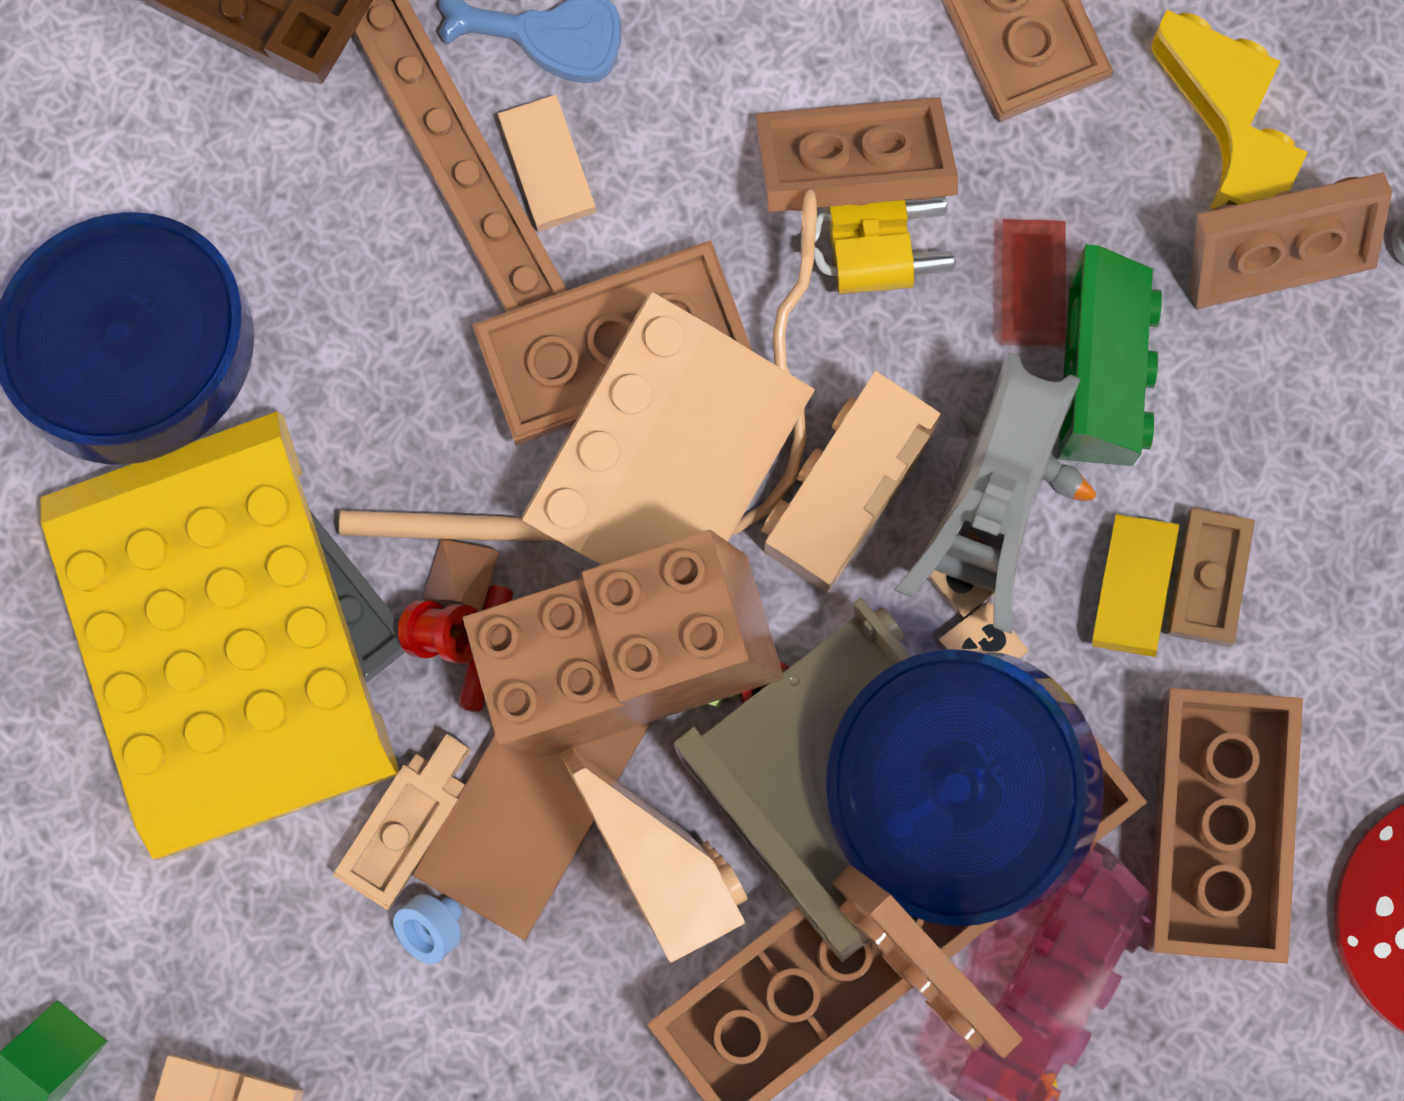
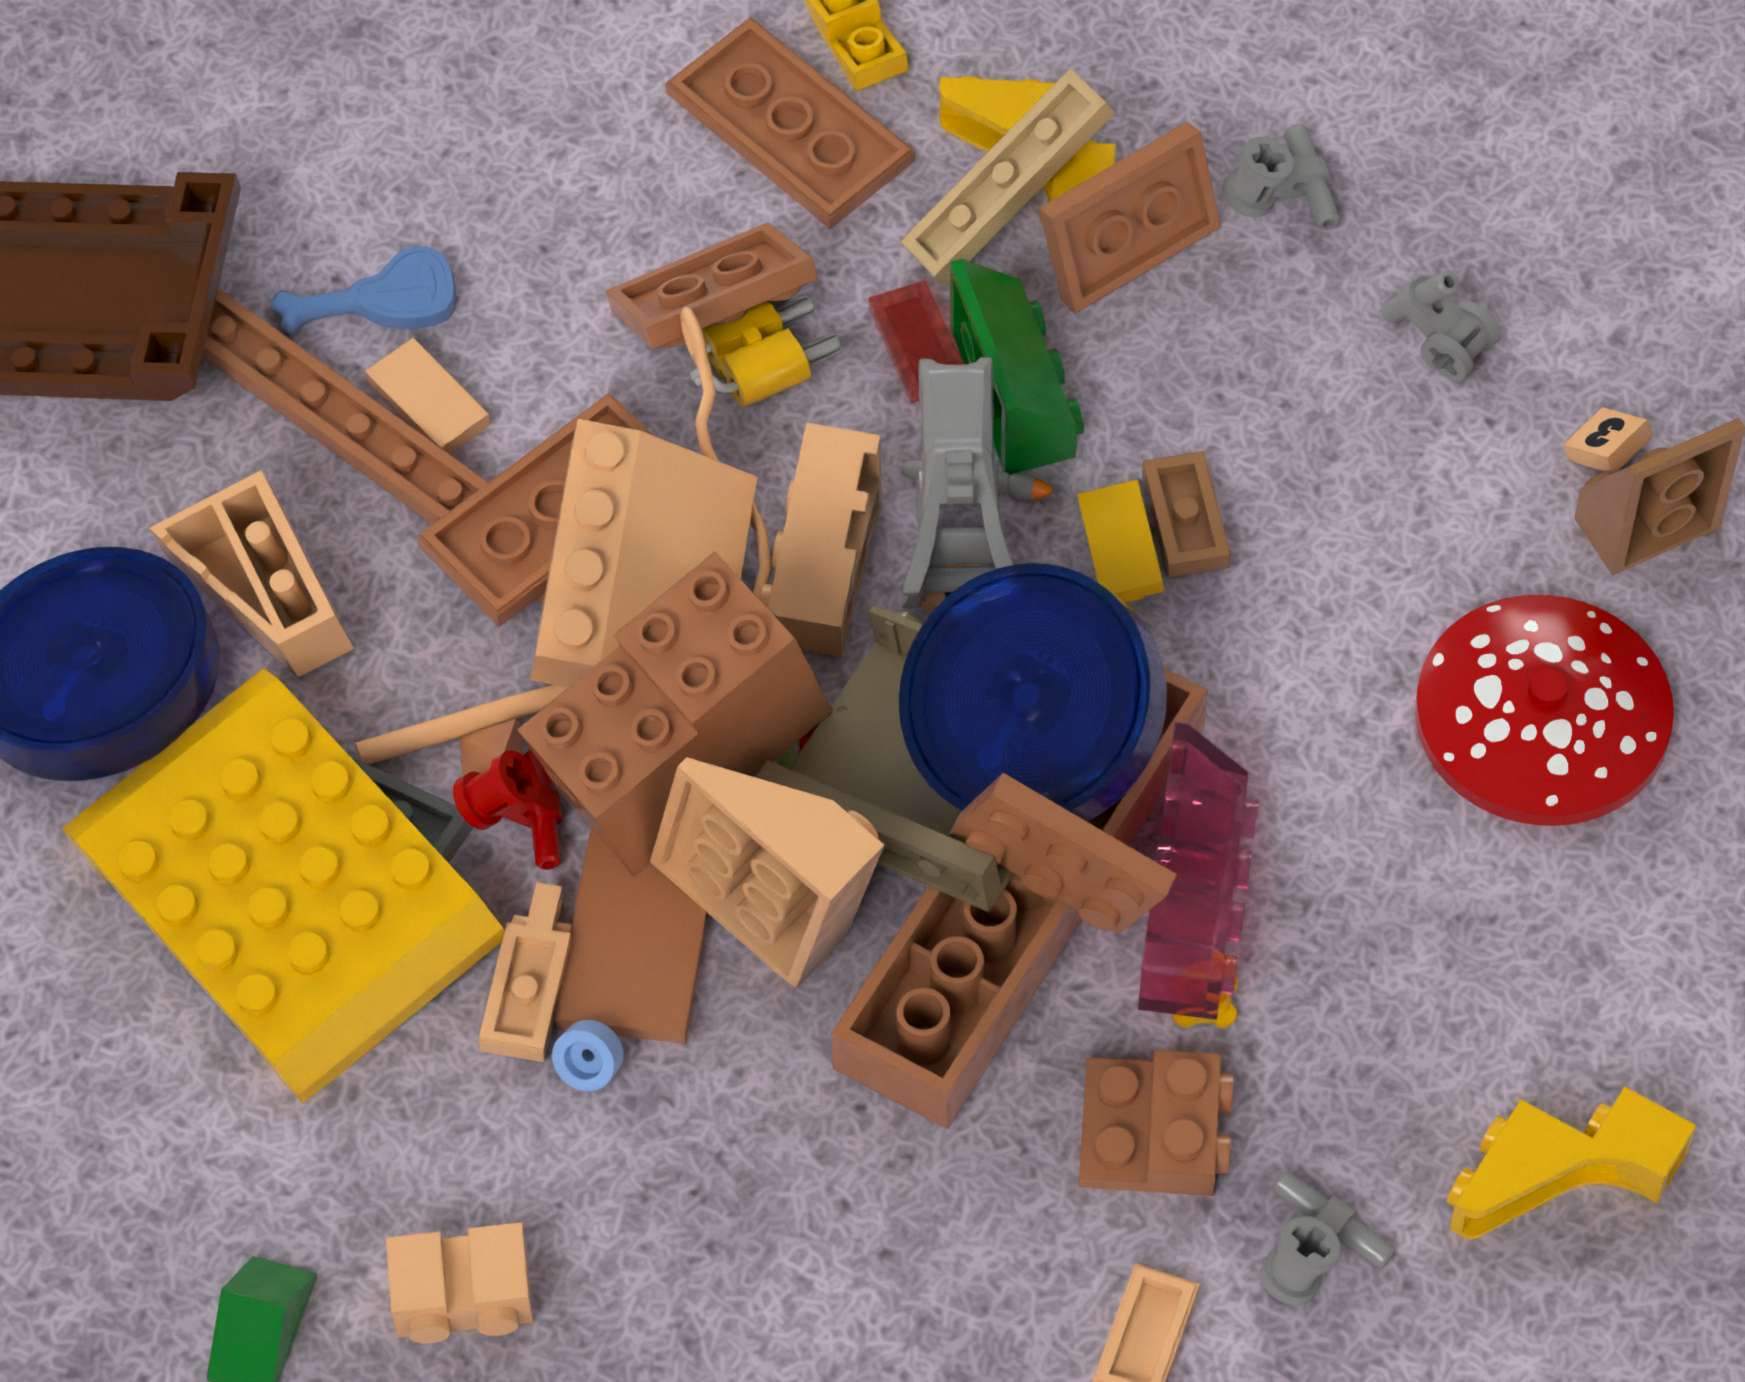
camera: 20 degrees left, 20 degrees down
(317, 304) = (257, 571): none -> light nougat wedge
(1188, 150) = (1008, 175): none -> tan plate
(1225, 825) = (1289, 698): nougat brick -> none

